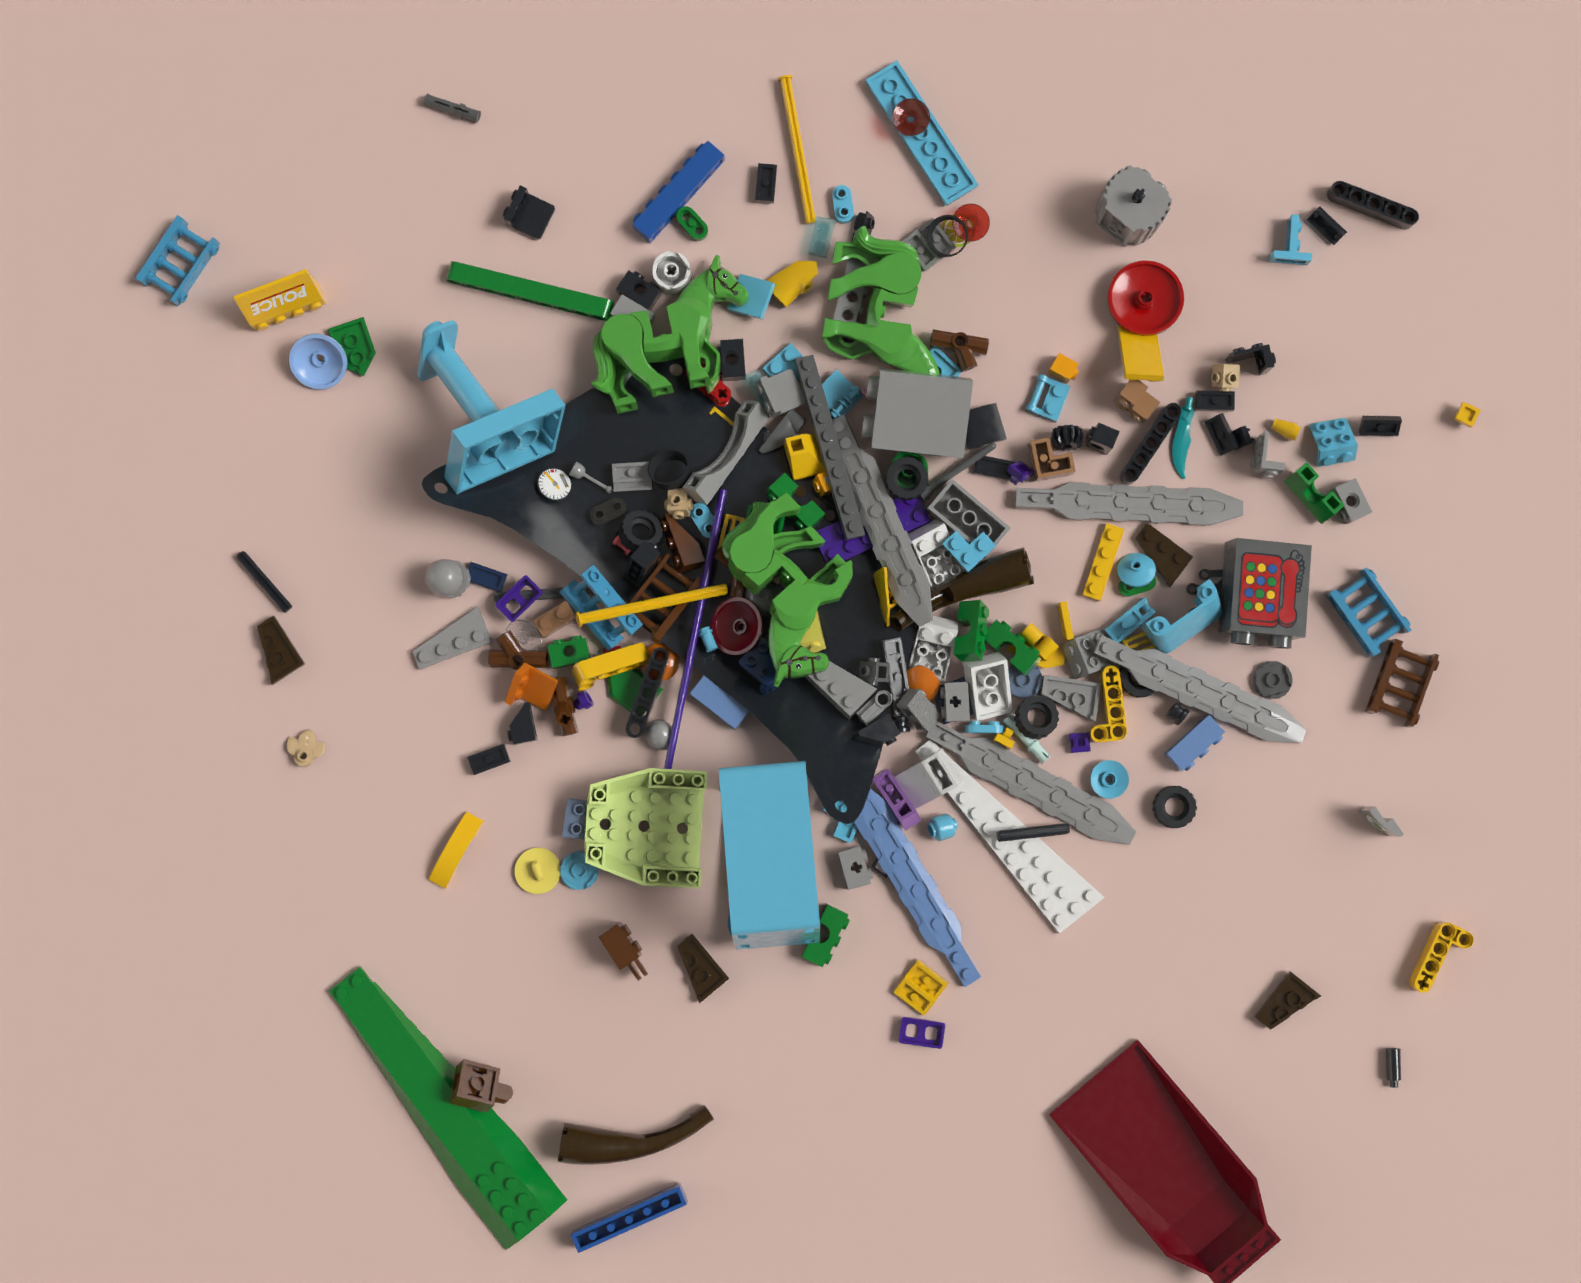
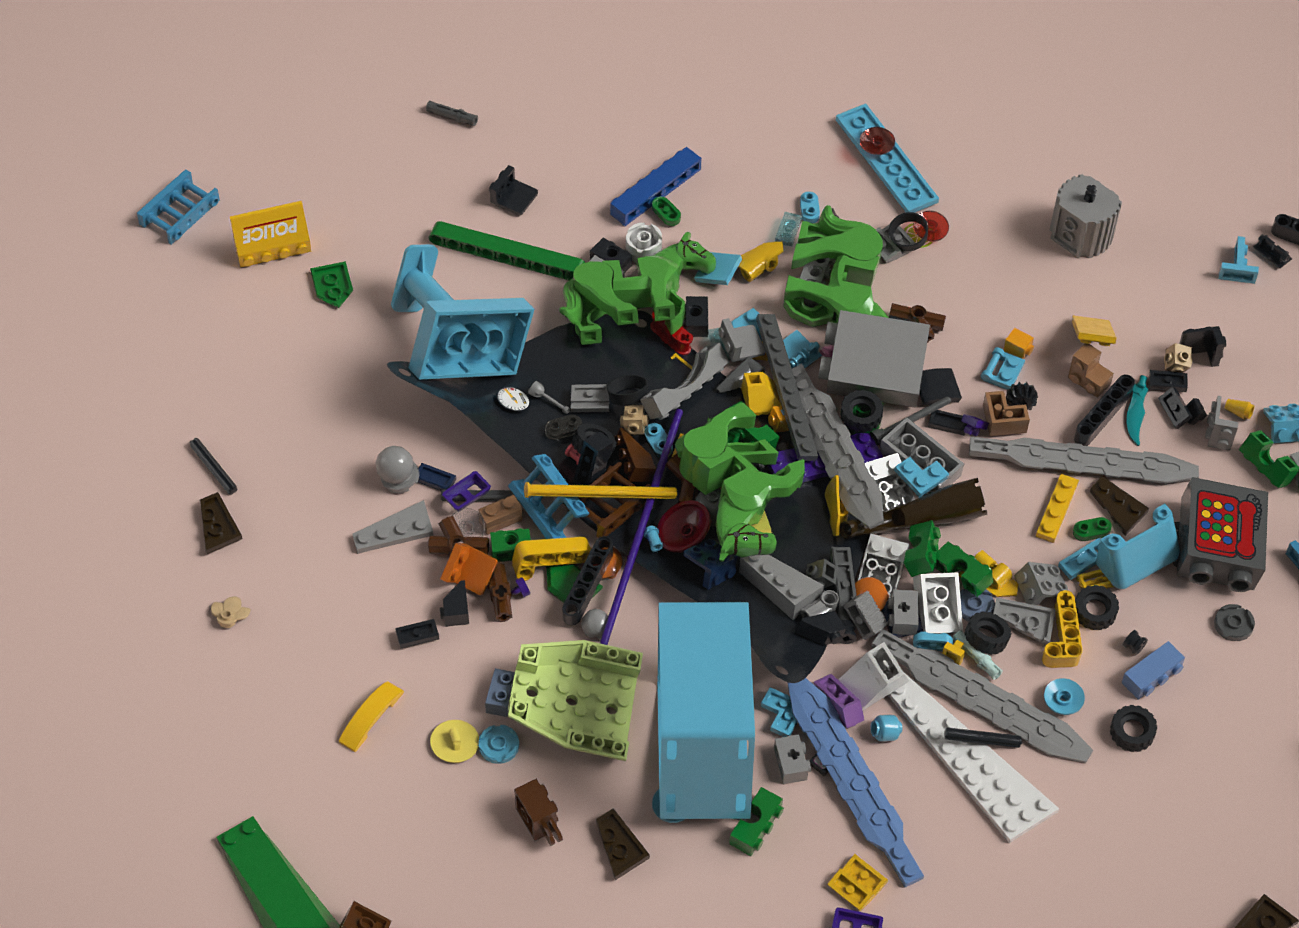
camera: 10 degrees right, 30 degrees down
(312, 370) = (285, 285): light blue dish -> none
(719, 702) = (651, 590): medium blue brick -> none
(766, 183) = (738, 186): black plate -> none
(797, 148) = (761, 113): yellow axle -> none
(1065, 621) = (1018, 550): yellow tile -> none
(1079, 742) = (1032, 664): dark purple tile -> none
(1101, 438) = (1056, 398): black brick -> none
(1136, 576) = (1091, 514): medium azure dish -> none
(1145, 298) = (1098, 292): red dish -> none
(1202, 691) = (1163, 623): light grey plate -> none

